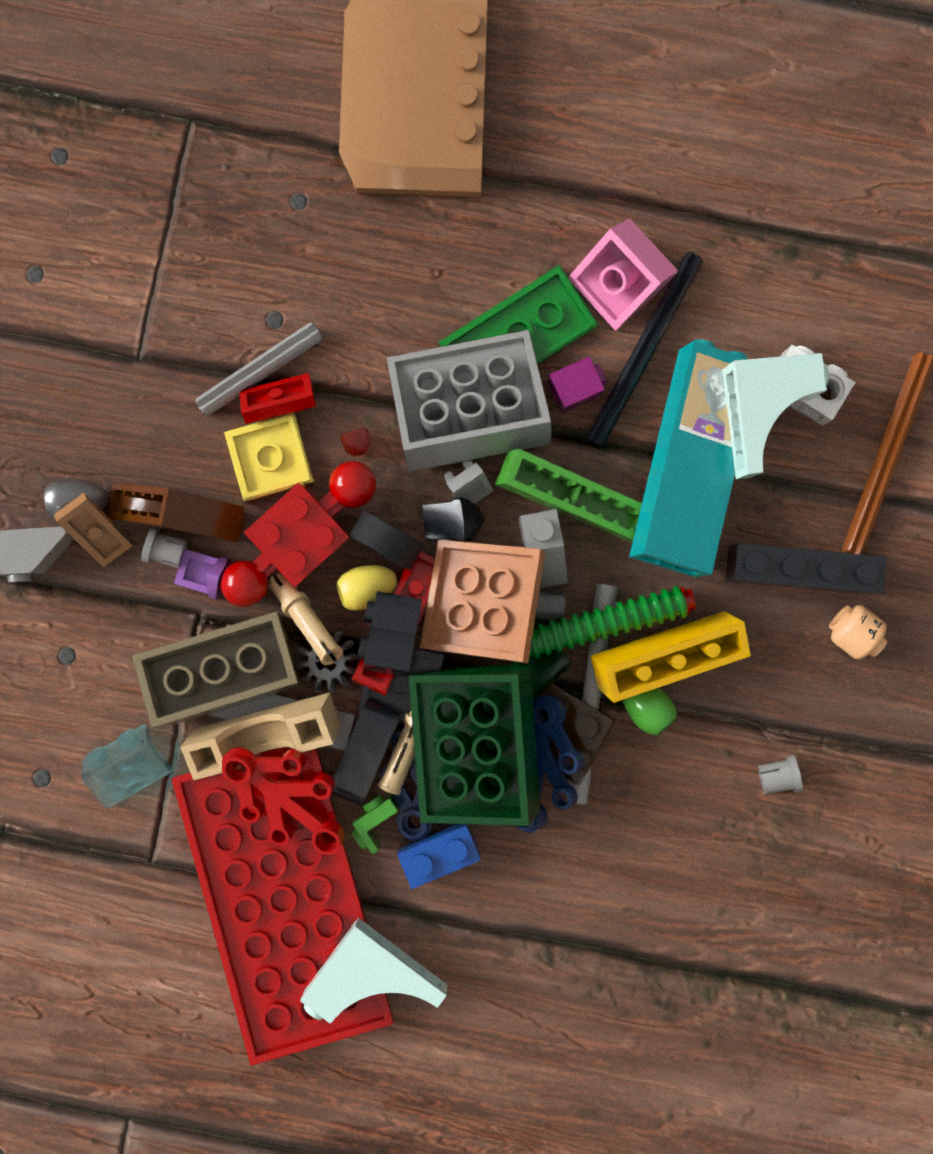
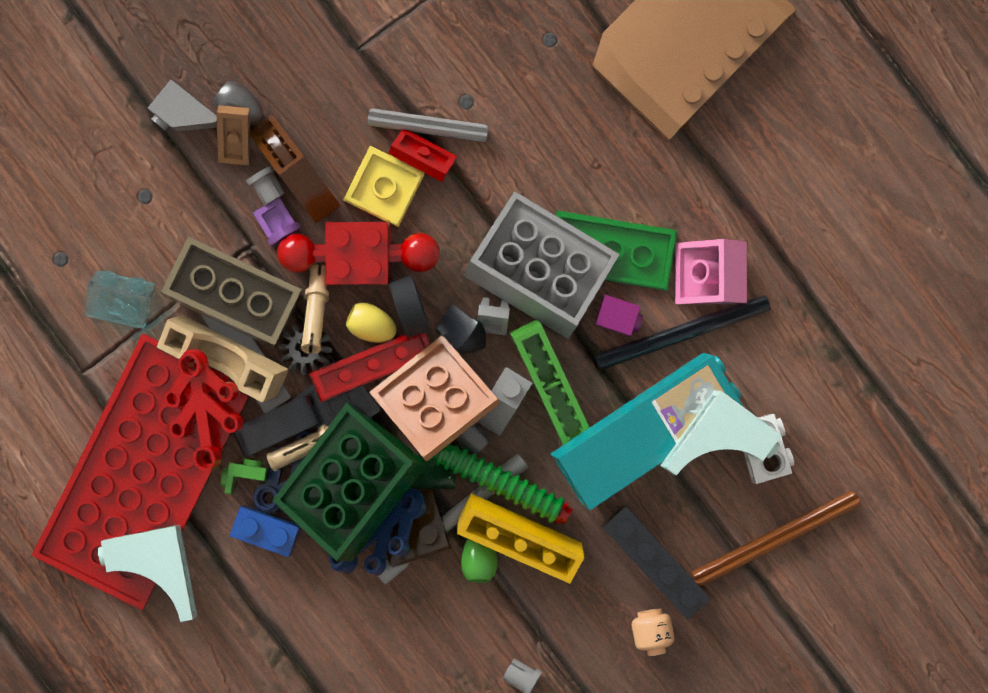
camera: 35 degrees right, 0 degrees up
(356, 441) = (447, 227): clear red hinge -> none
(391, 633) = (359, 368): black brick -> none

